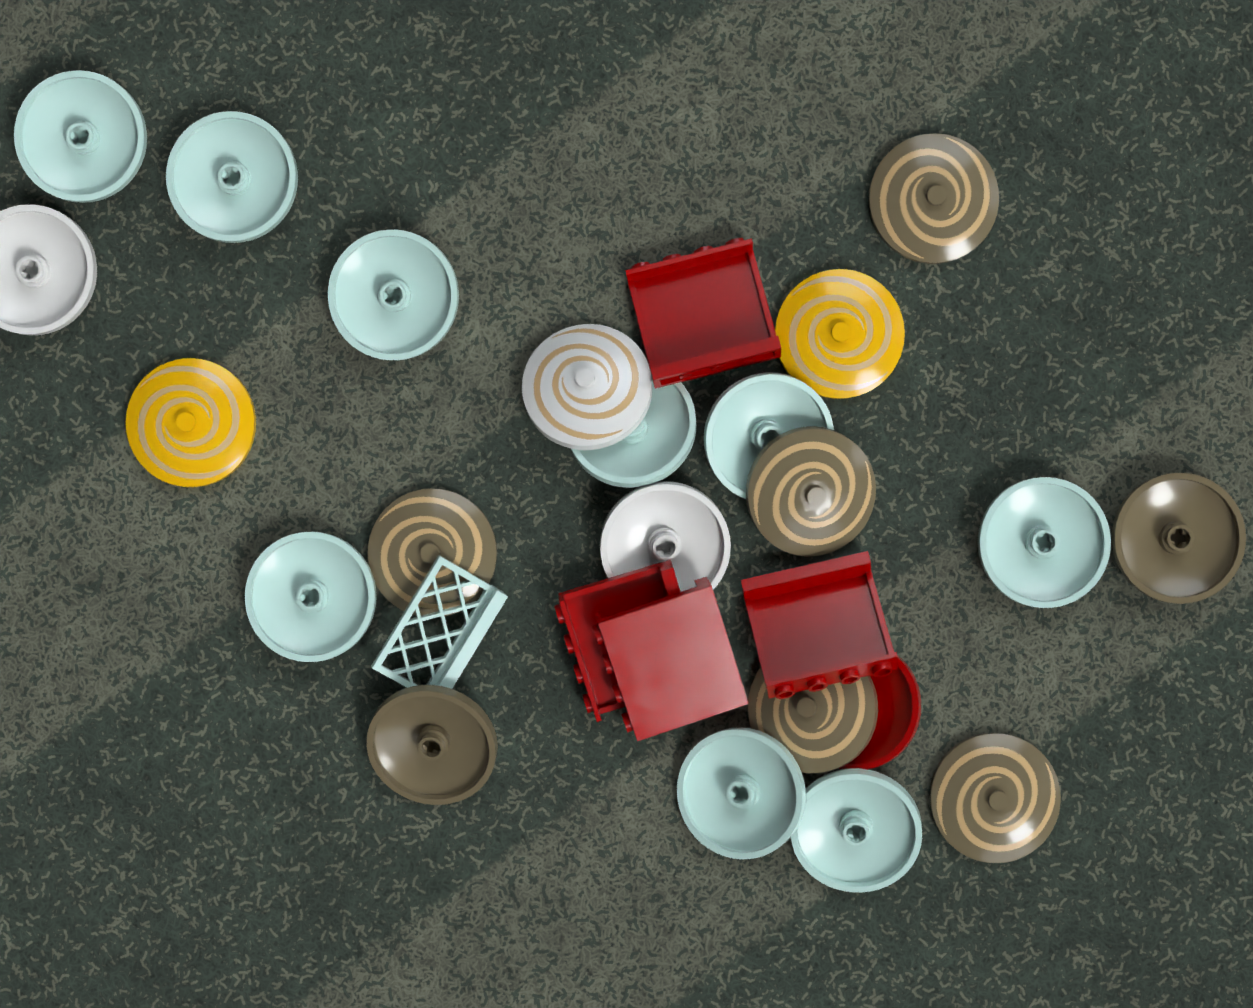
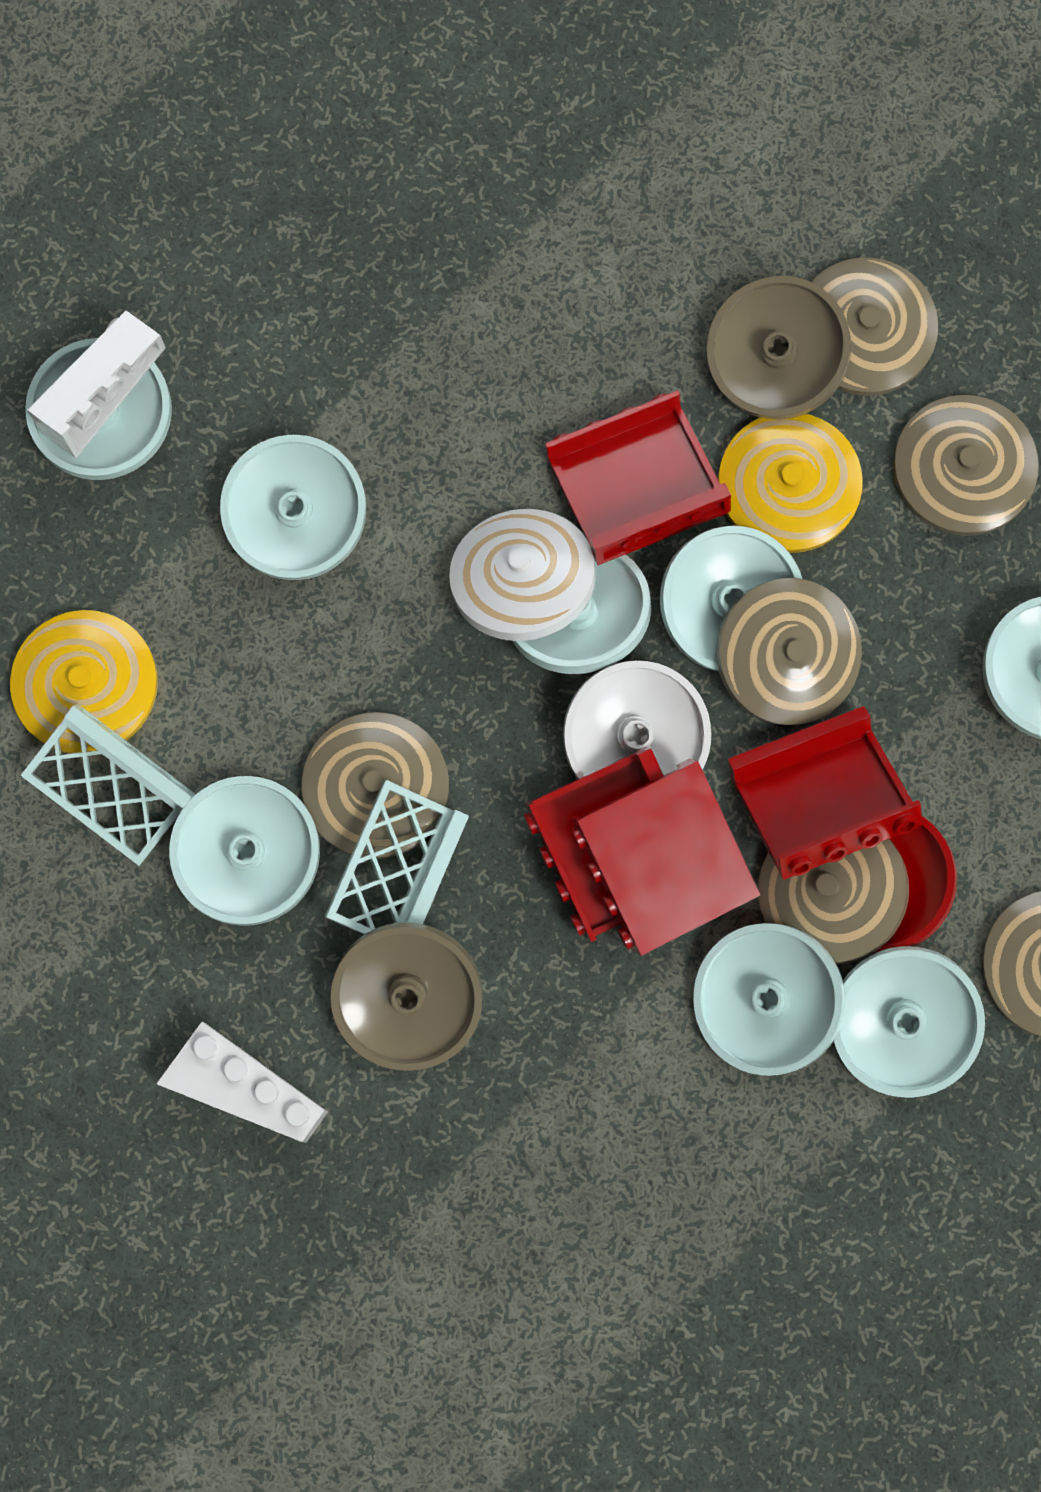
camera: 10 degrees left, 10 degrees down
(220, 500) = (128, 759): none -> light aqua fence
(231, 159) = (96, 383): none -> white wedge
(280, 795) = (233, 1081): none -> white wedge
(849, 210) = (779, 347): none -> dark tan dish
(999, 341) = (965, 465): none -> dark tan dish

